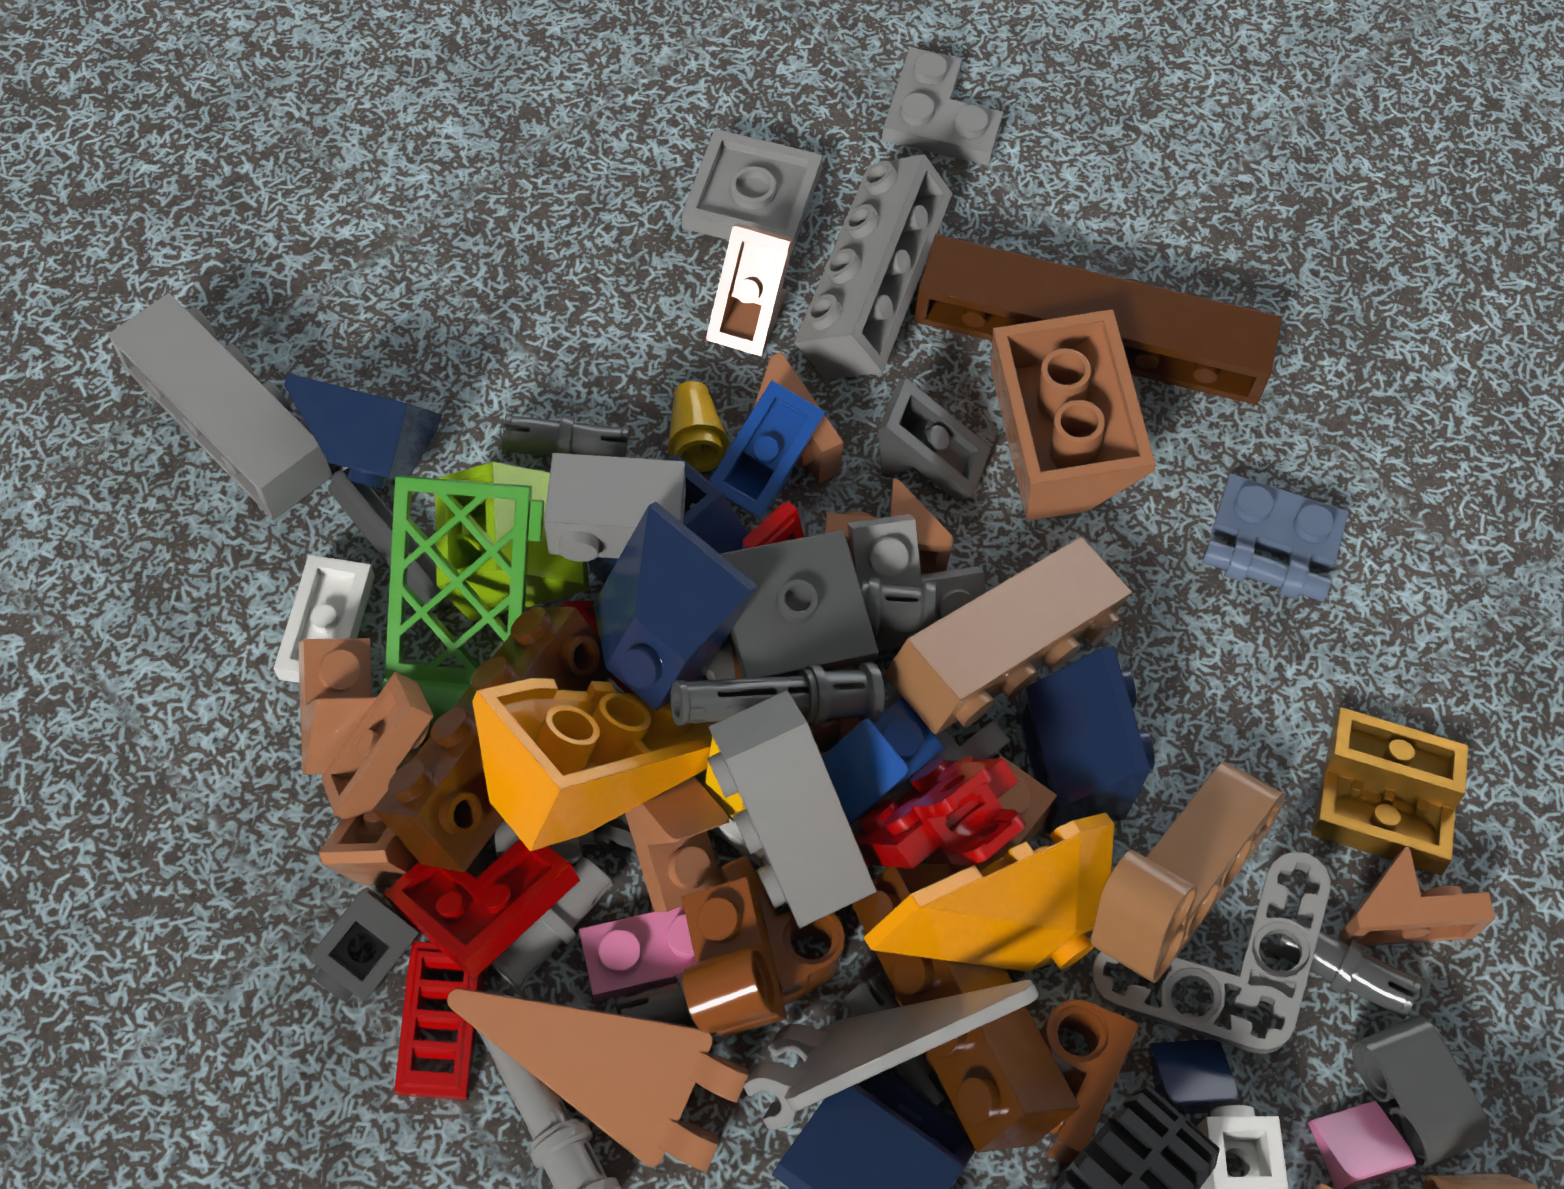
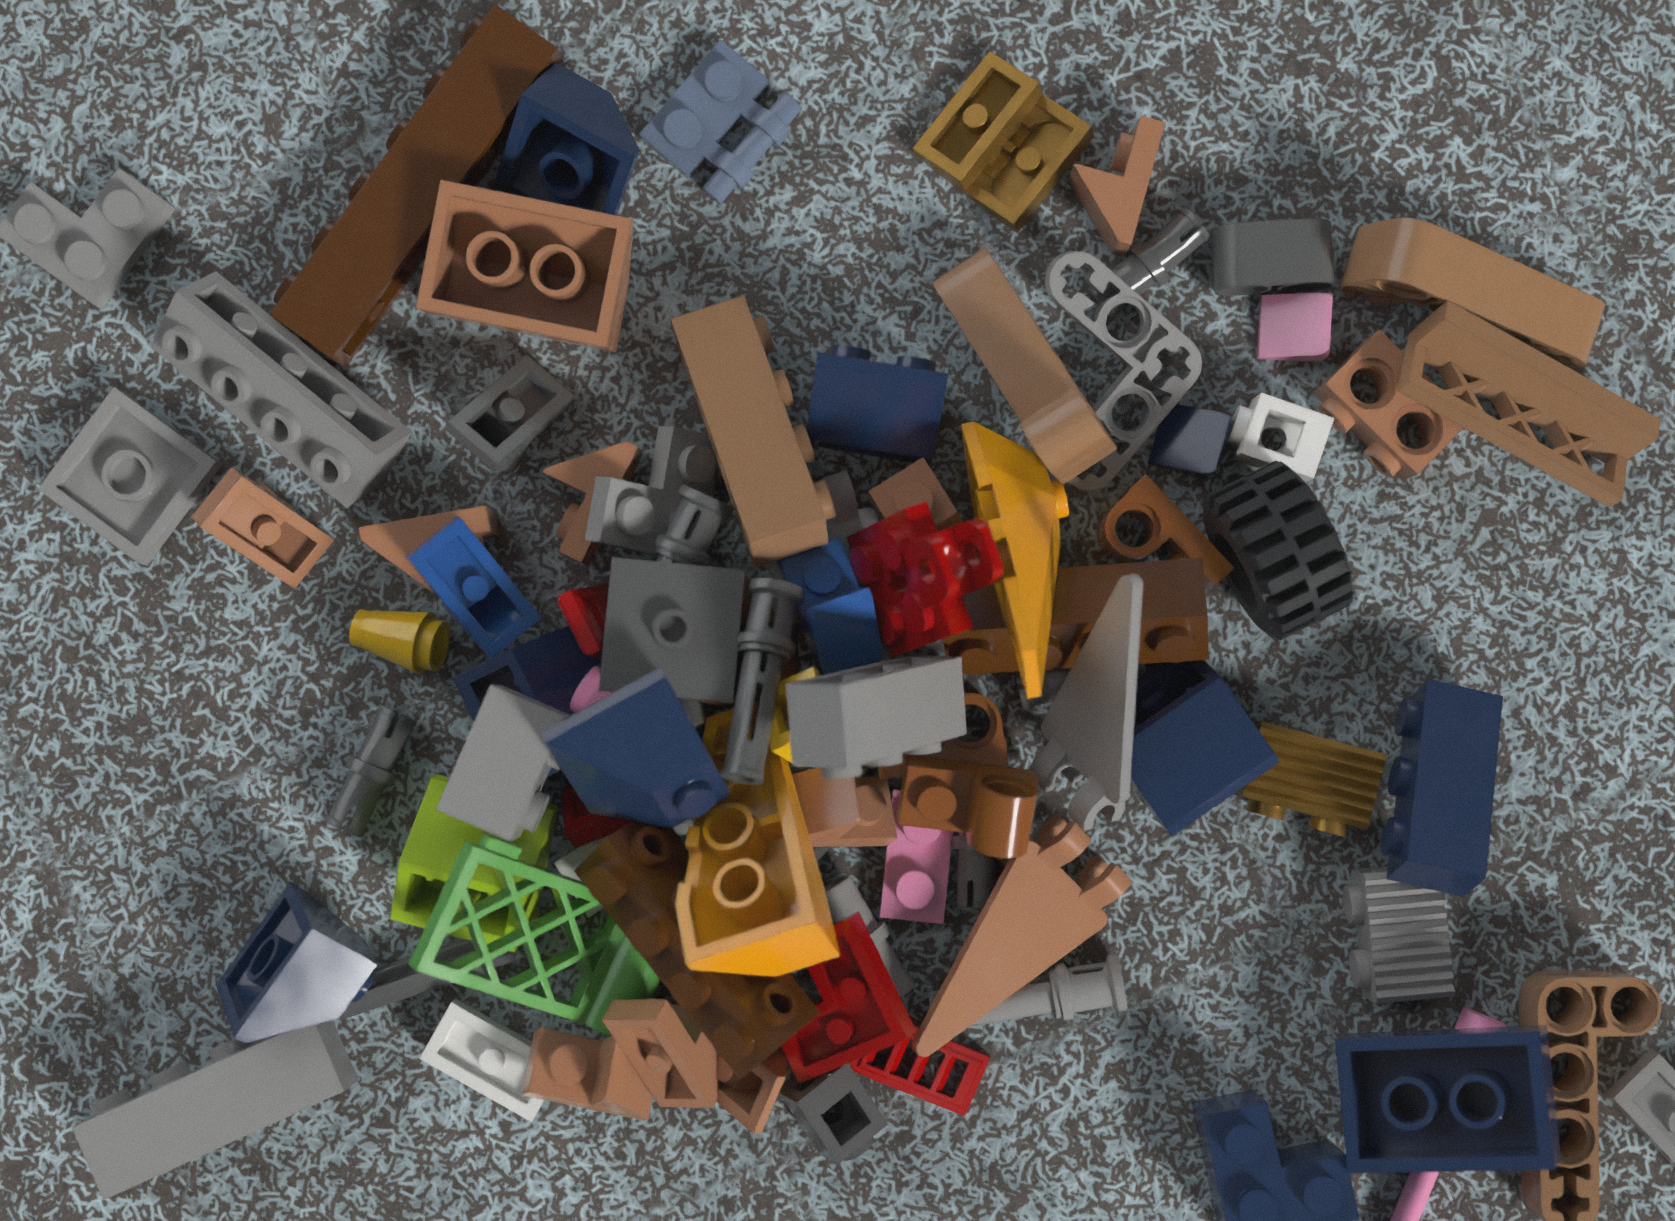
camera: 65 degrees left, 25 degrees up
(1196, 408) = (568, 145): none -> dark blue slope

